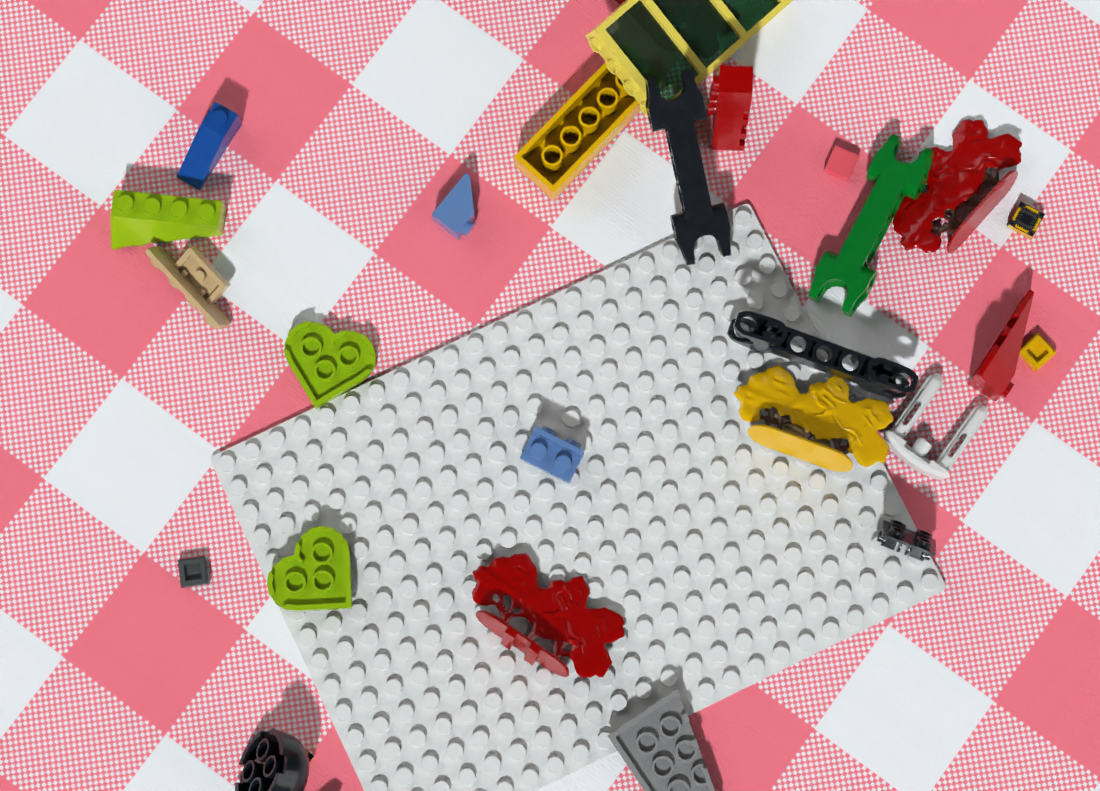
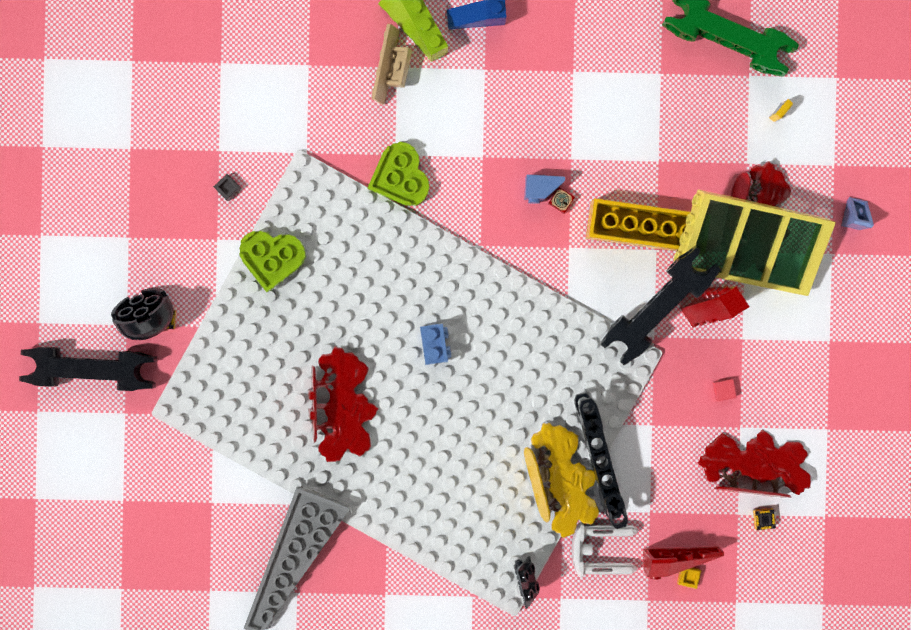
camera: 50 degrees right, 10 degrees up
(489, 197) = (561, 200): none -> tile
(850, 267) = (665, 438): green piece -> none

